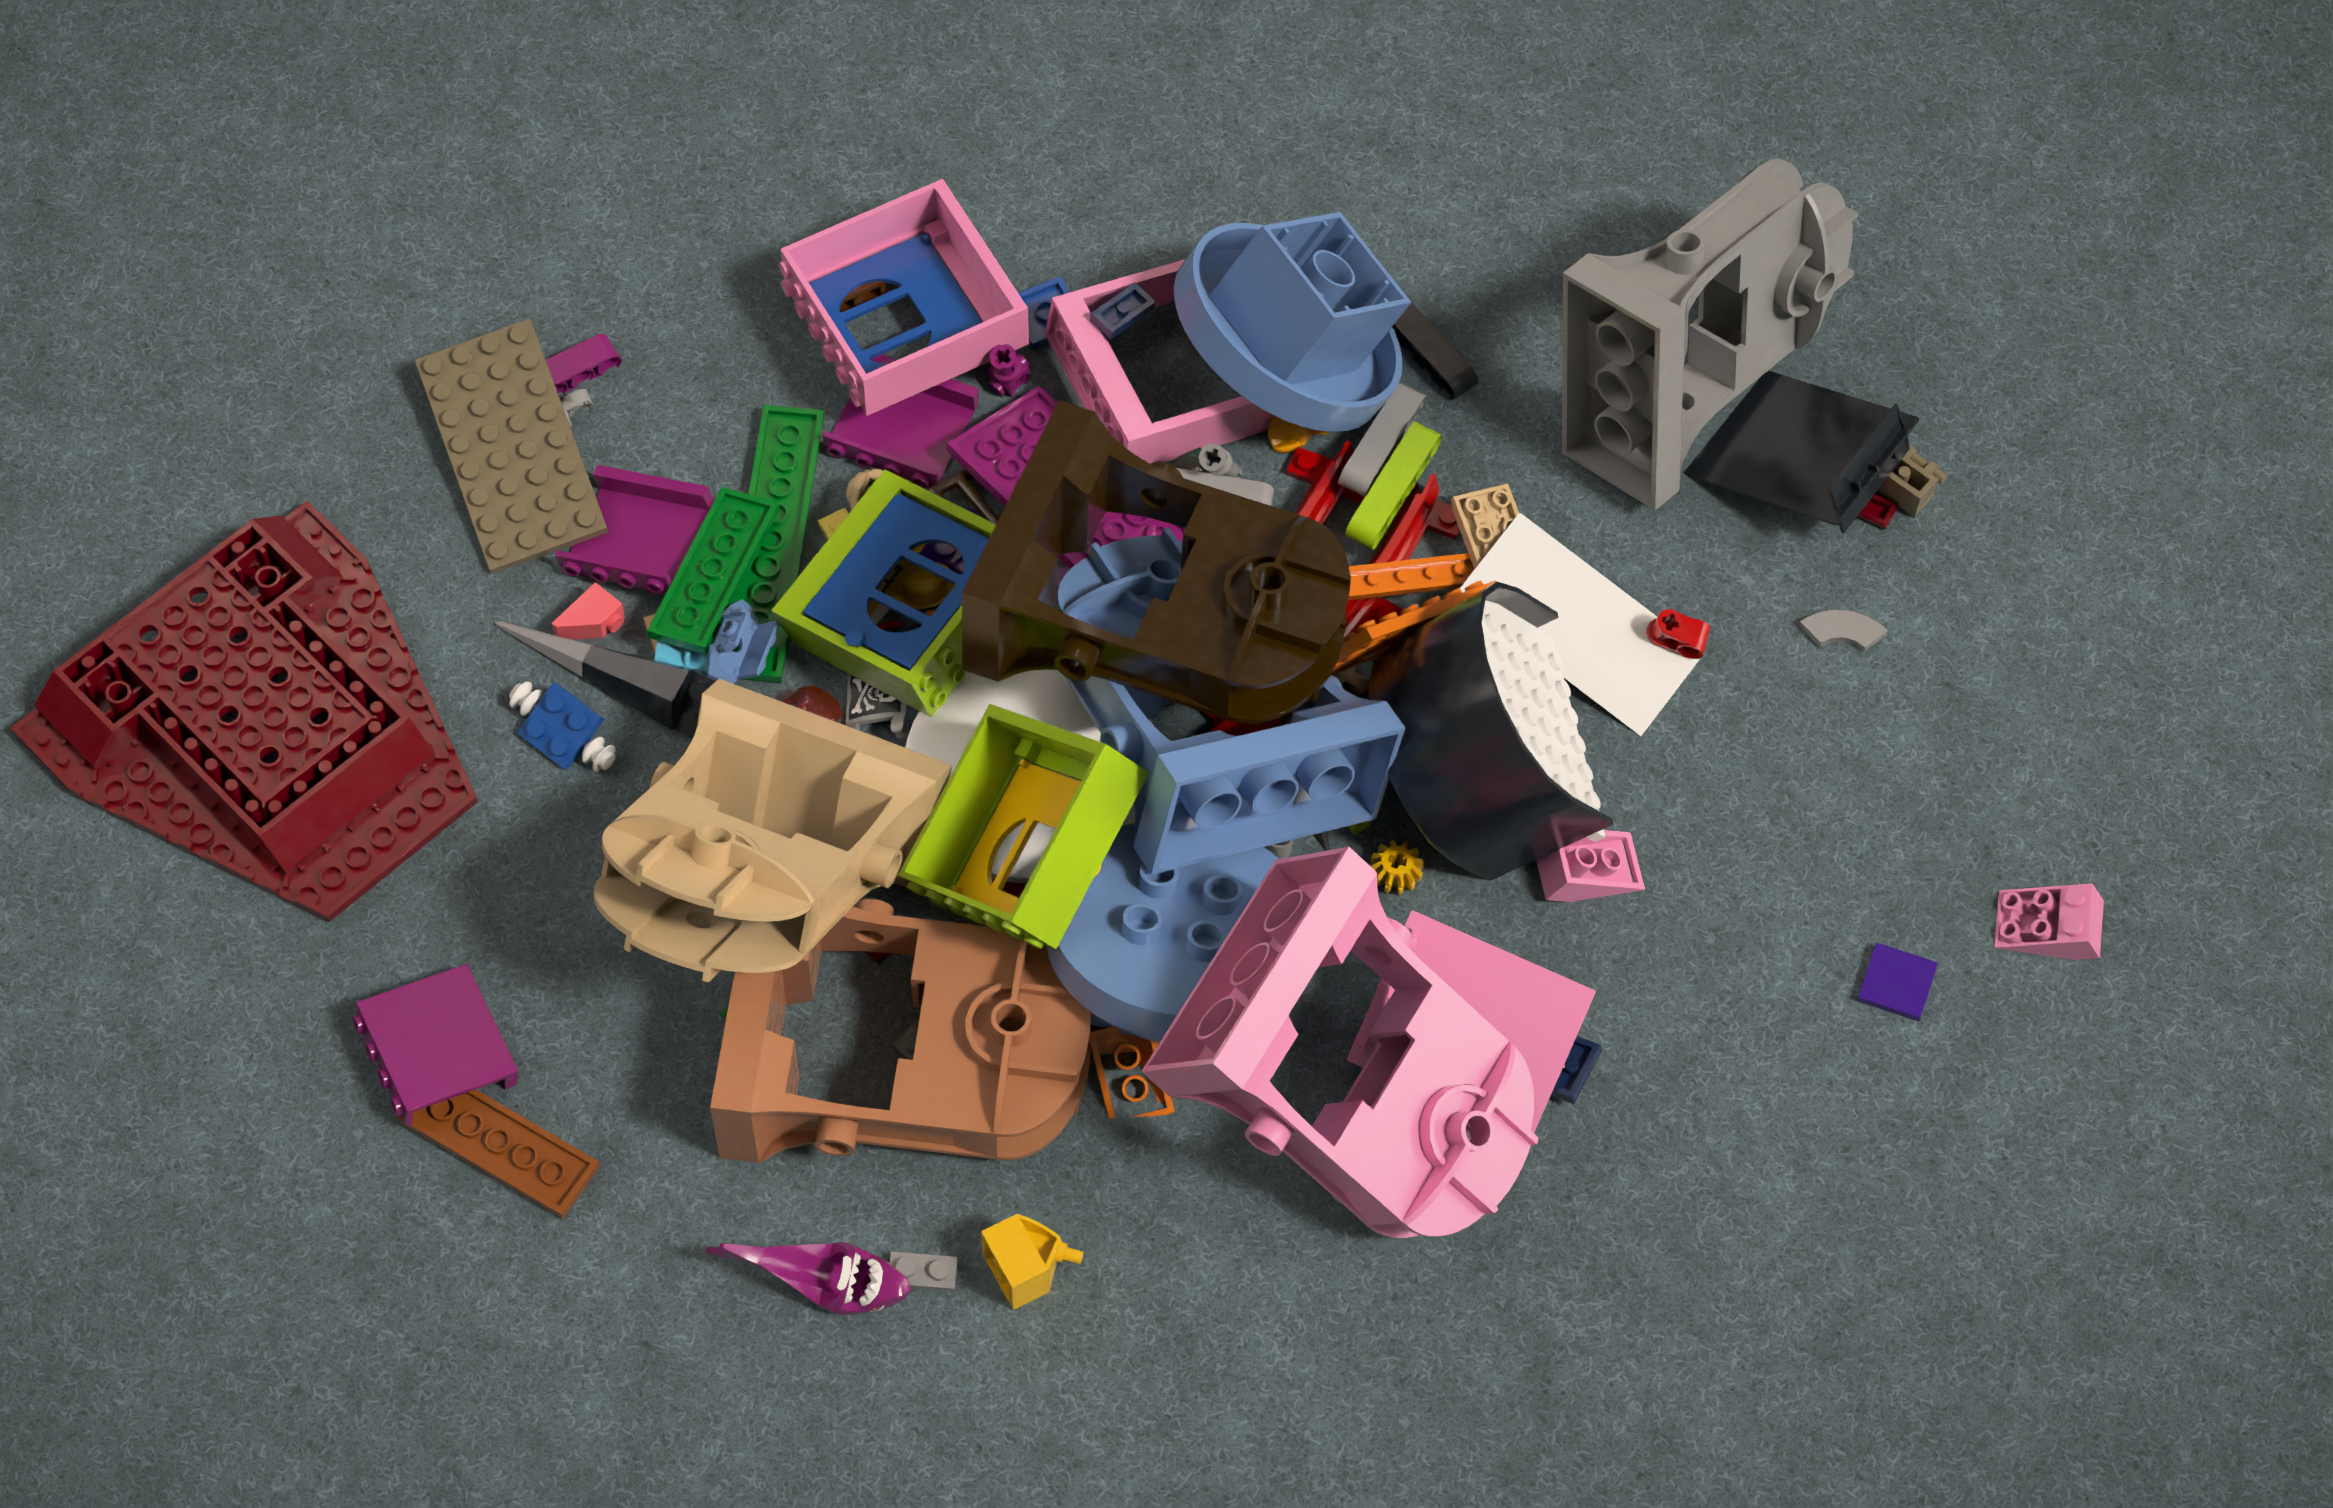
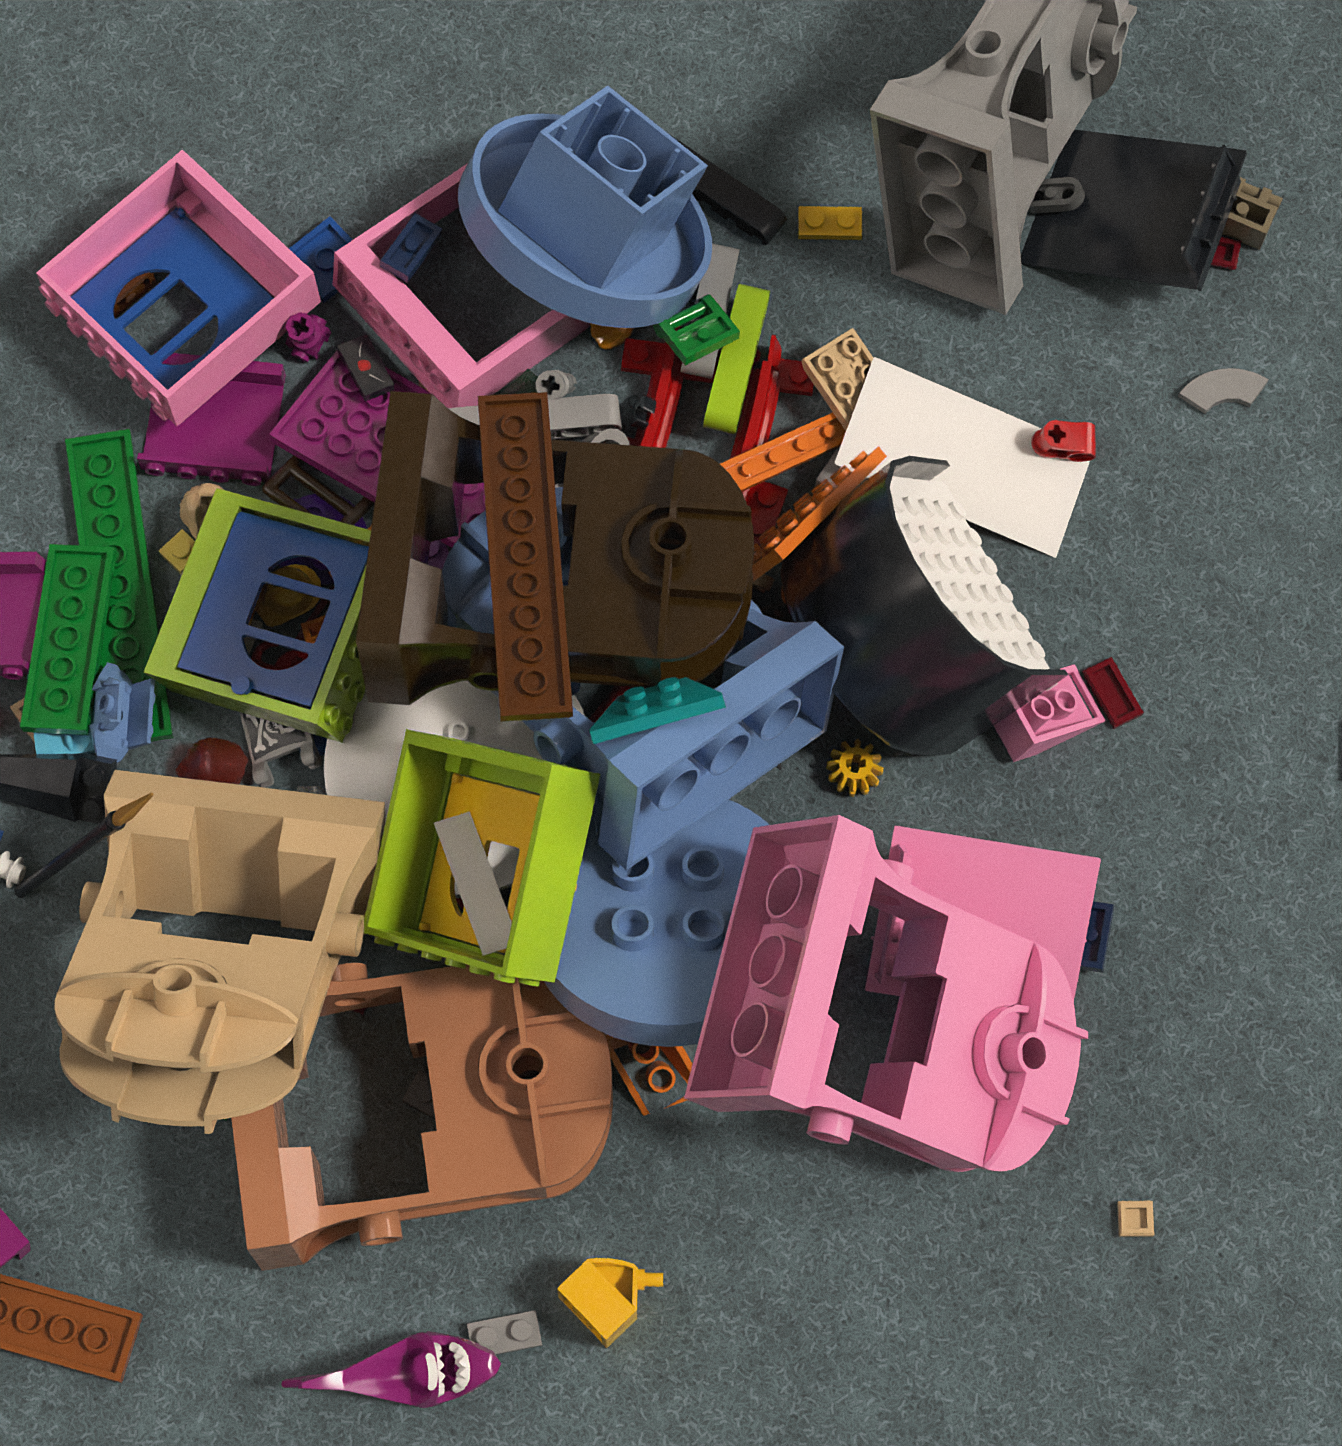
camera: 15 degrees left, 10 degrees up
(703, 714) = (112, 823): none -> black piece
(1011, 847) = (475, 882): none -> white sticker
(1045, 400) = (365, 367): none -> black tile
(1134, 566) = (524, 557): none -> reddish brown plate
(1206, 726) = (655, 706): none -> teal wing
(1295, 504) = (641, 407): none -> black bar
(1363, 448) = (701, 336): none -> green plate
(1517, 395) = (830, 222): none -> yellow plate
(1540, 1330) = (1135, 1218): none -> tan tile
(1658, 866) = (1112, 693): none -> dark red tile
(1735, 421) = (1054, 195): none -> dark grey plate

